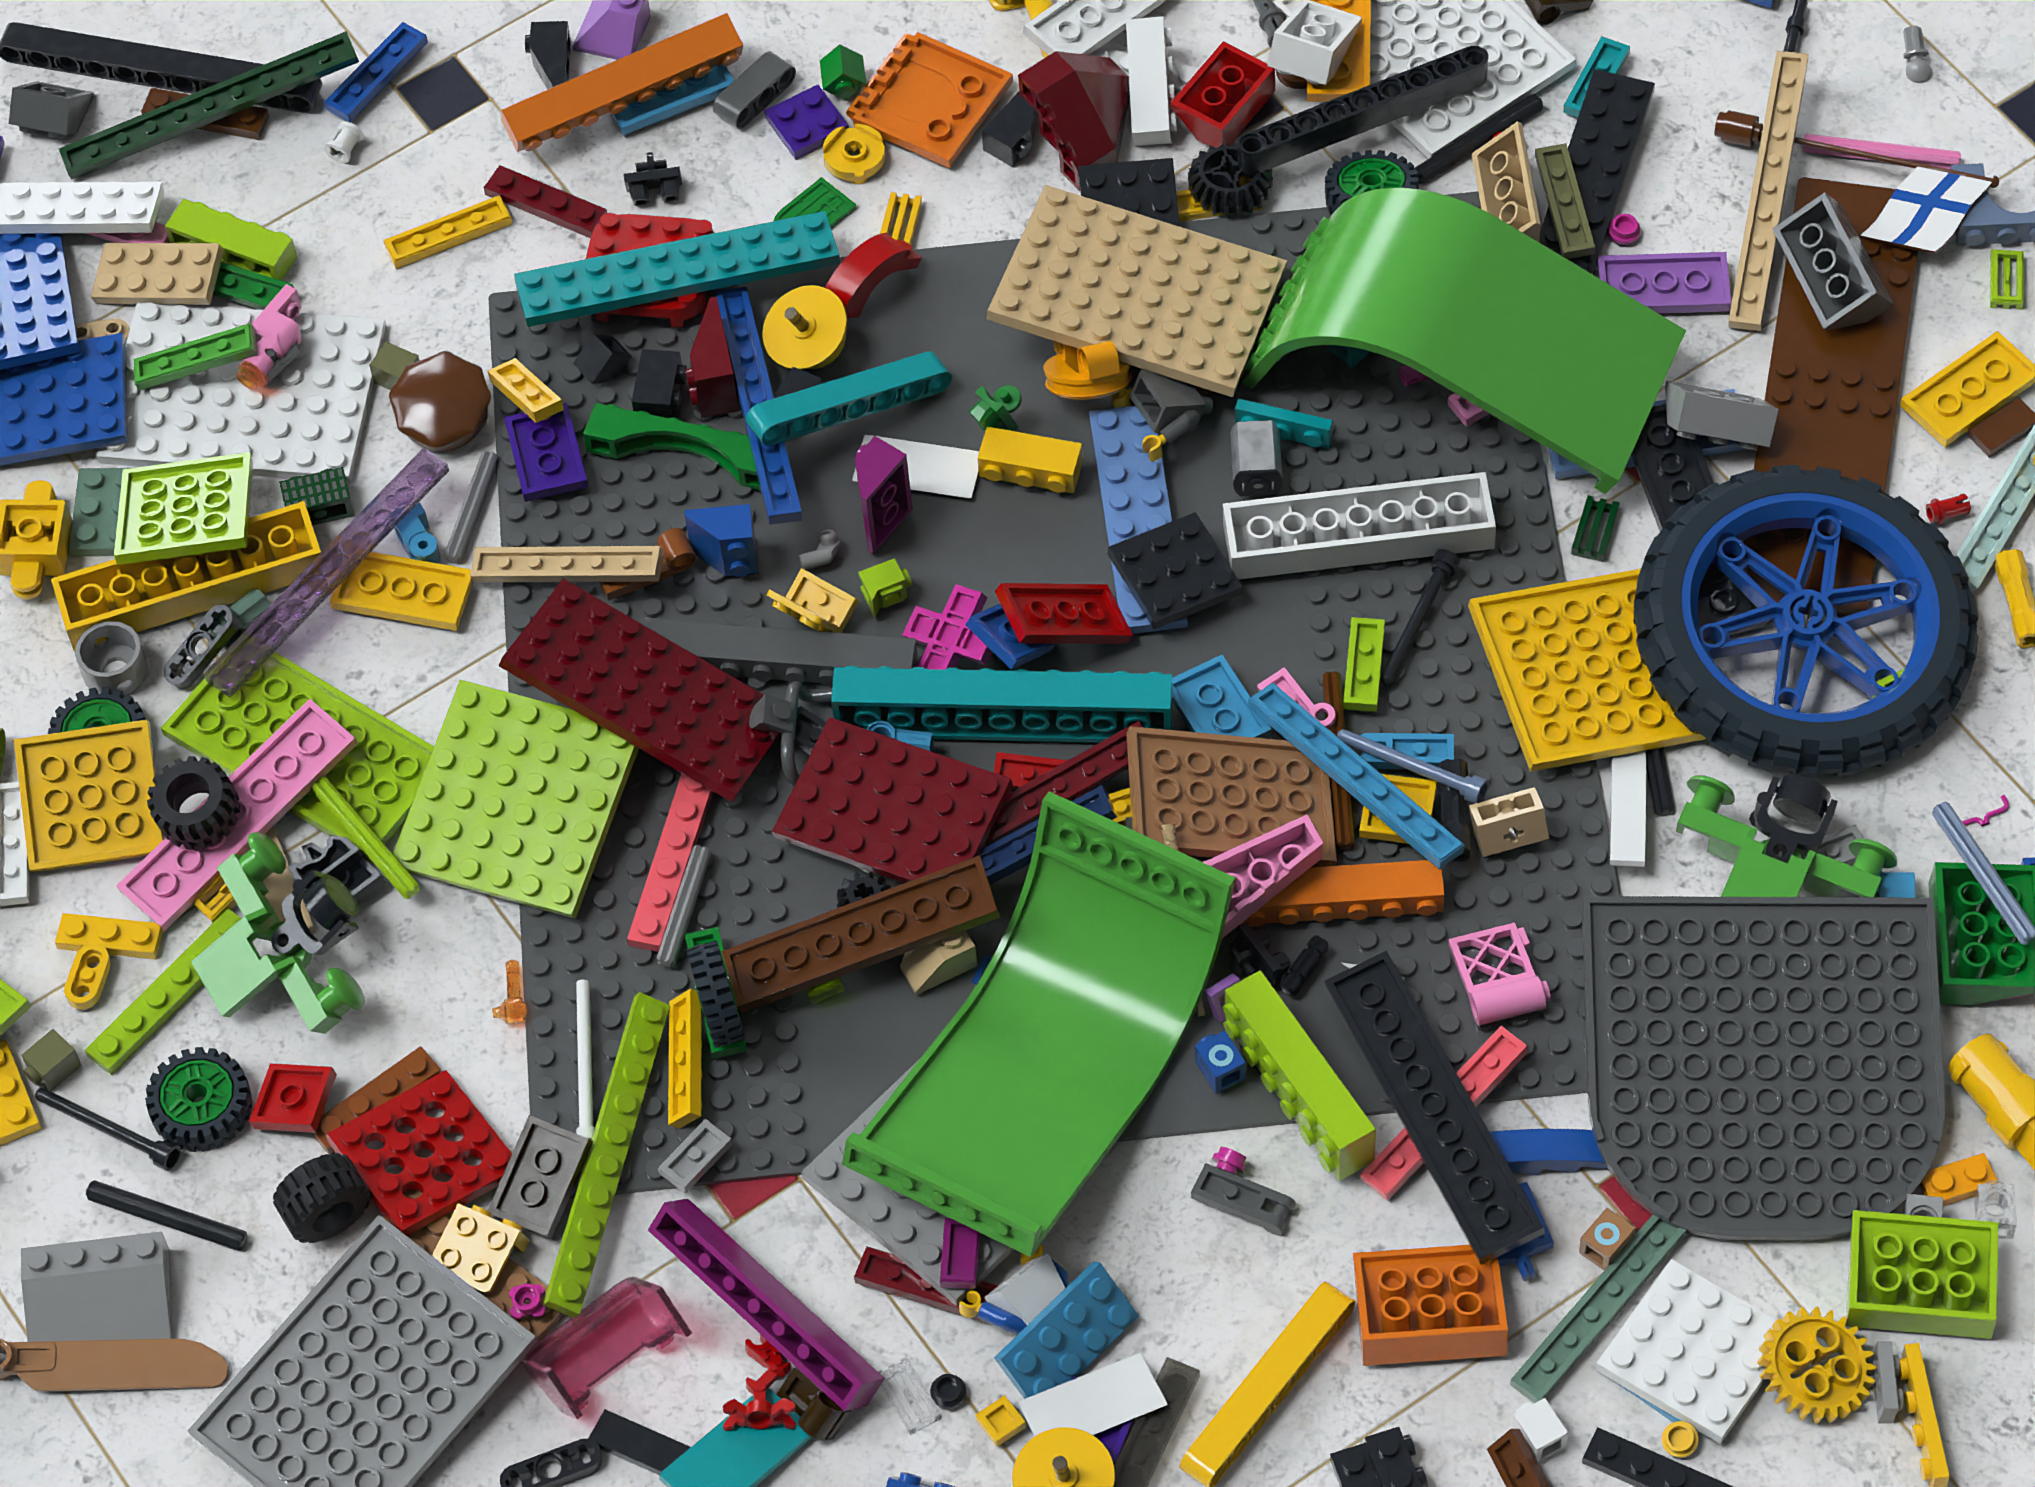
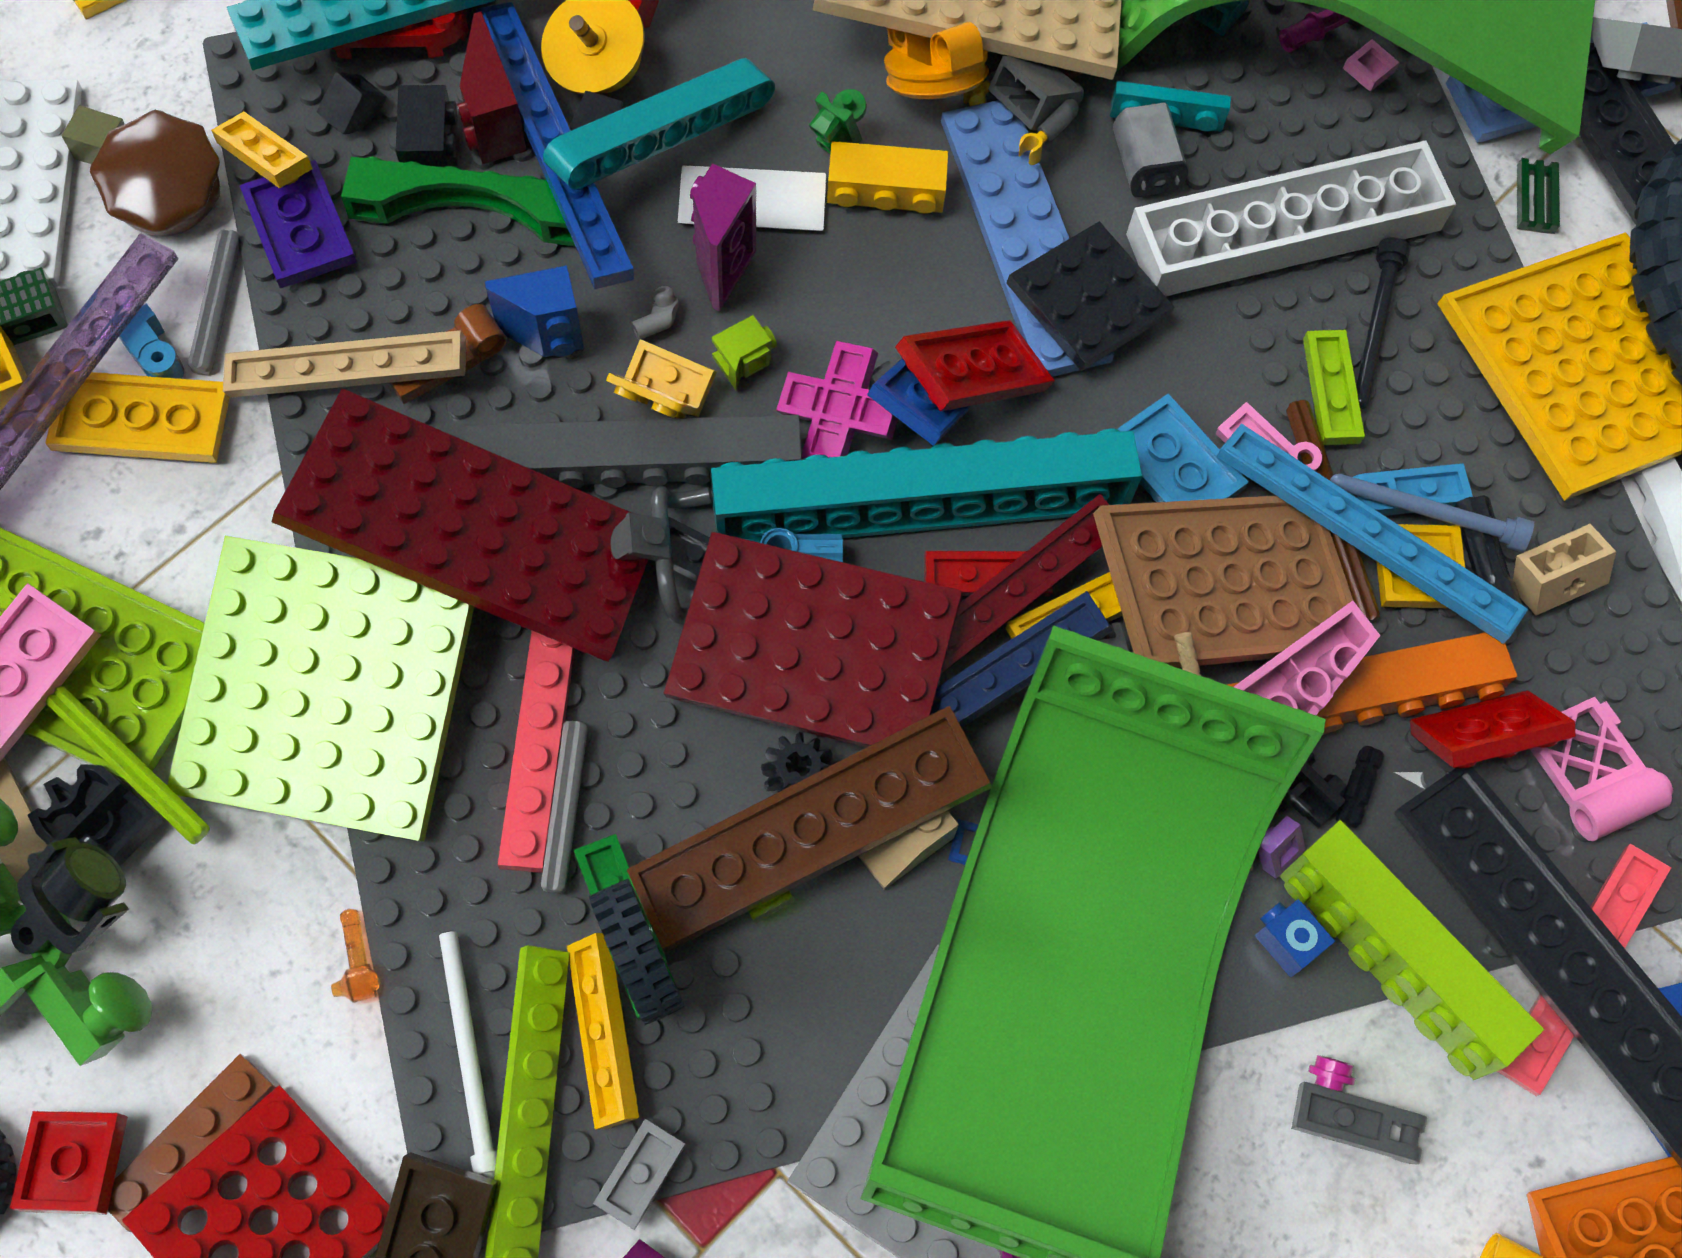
camera: 20 degrees left, 10 degrees up
(1414, 932) = (1492, 729): none -> red plate

